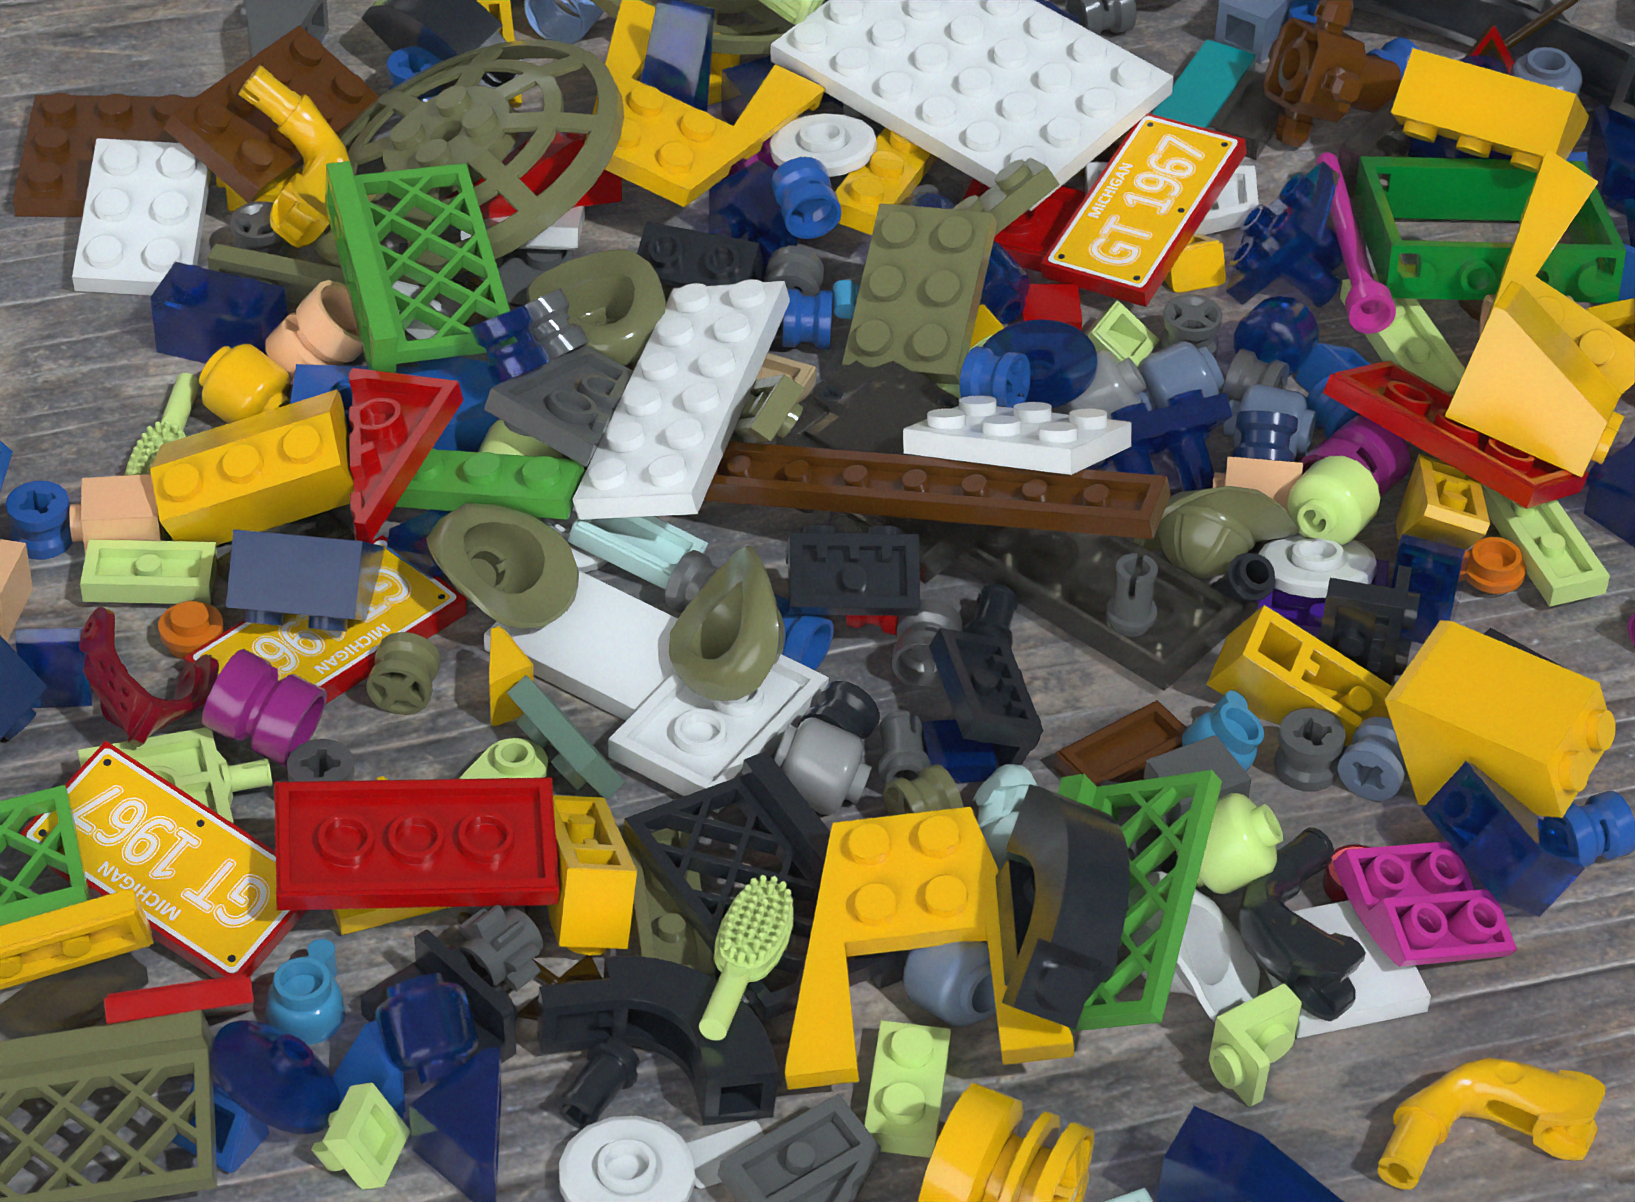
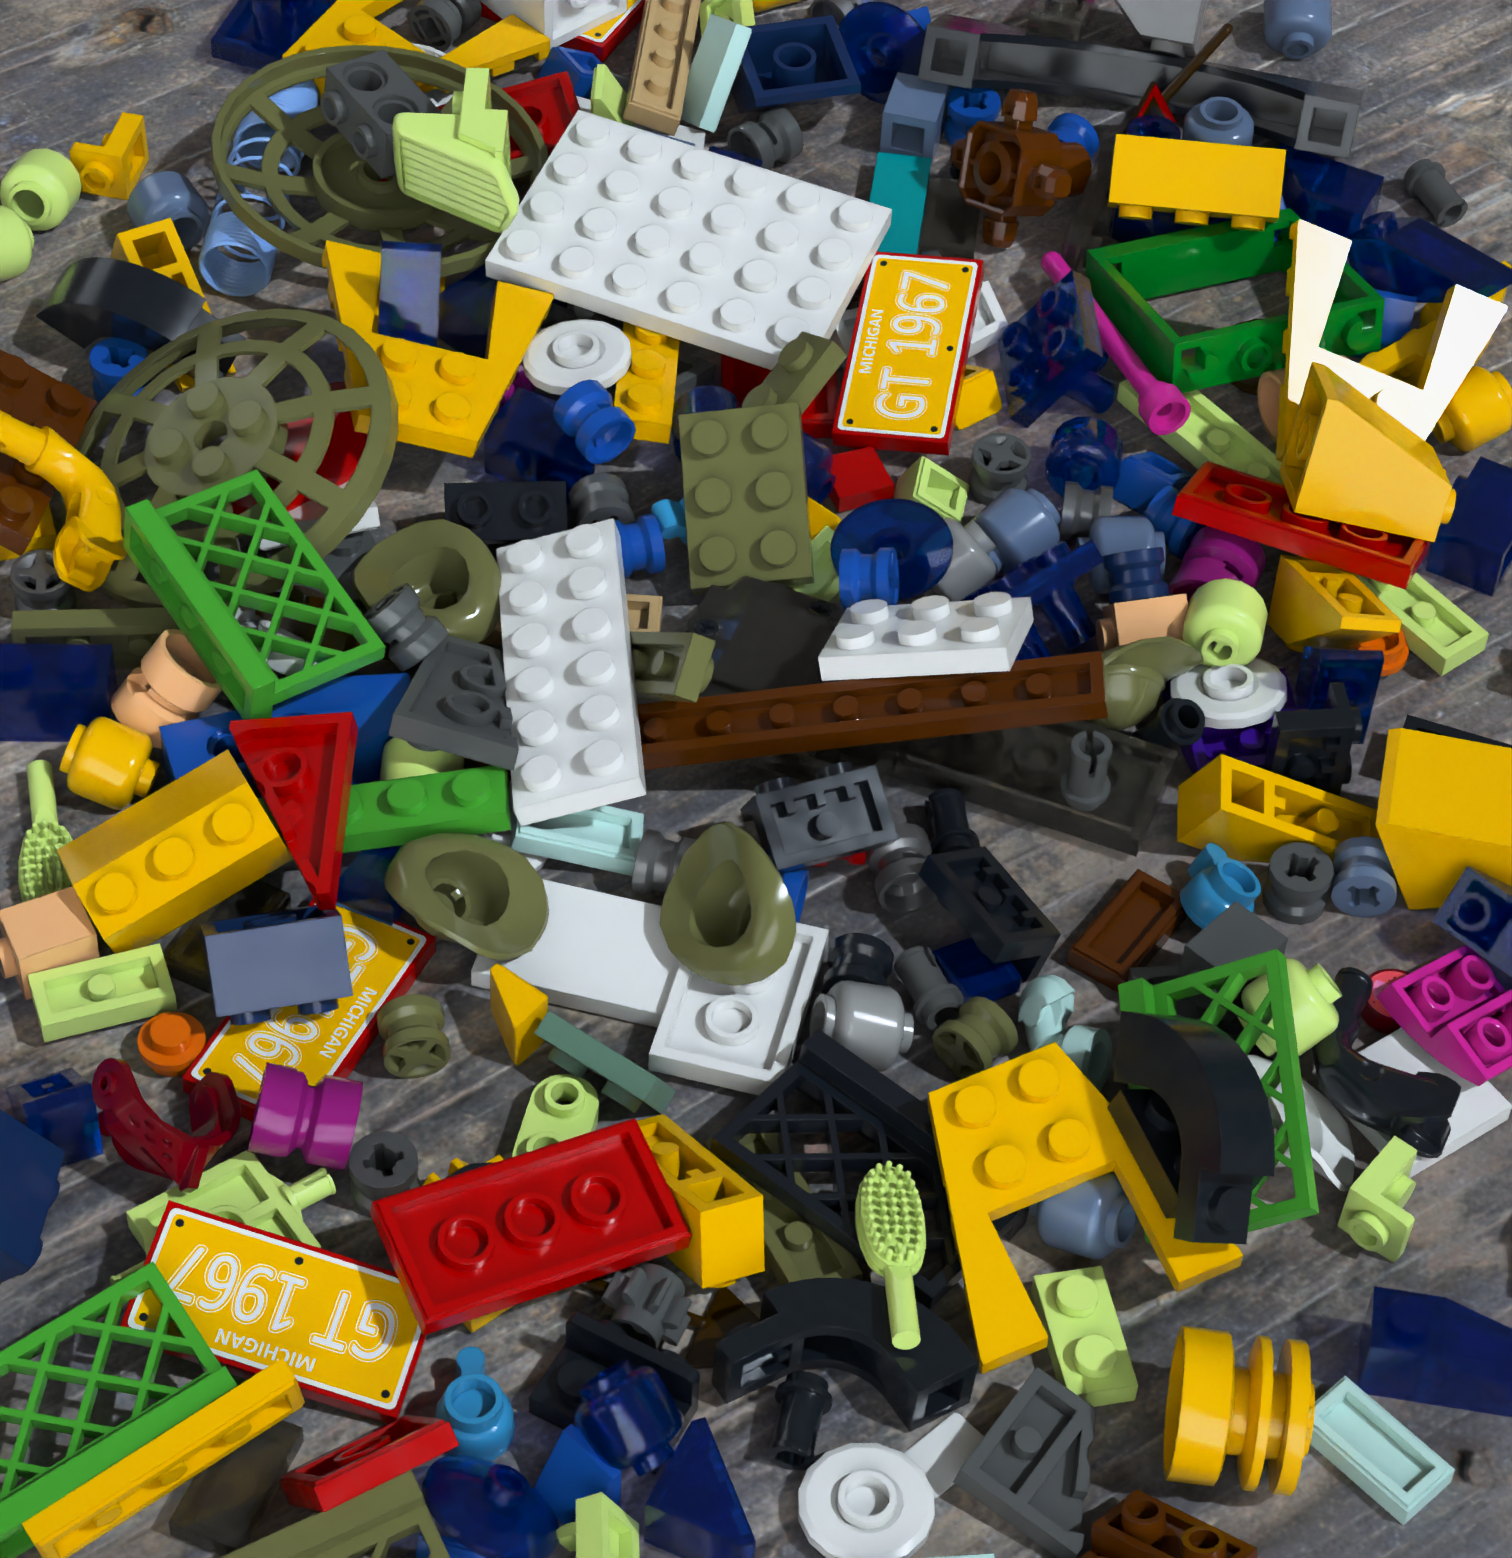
camera: 20 degrees left, 5 degrees up
(516, 357) = (387, 659): clear blue wheel -> none

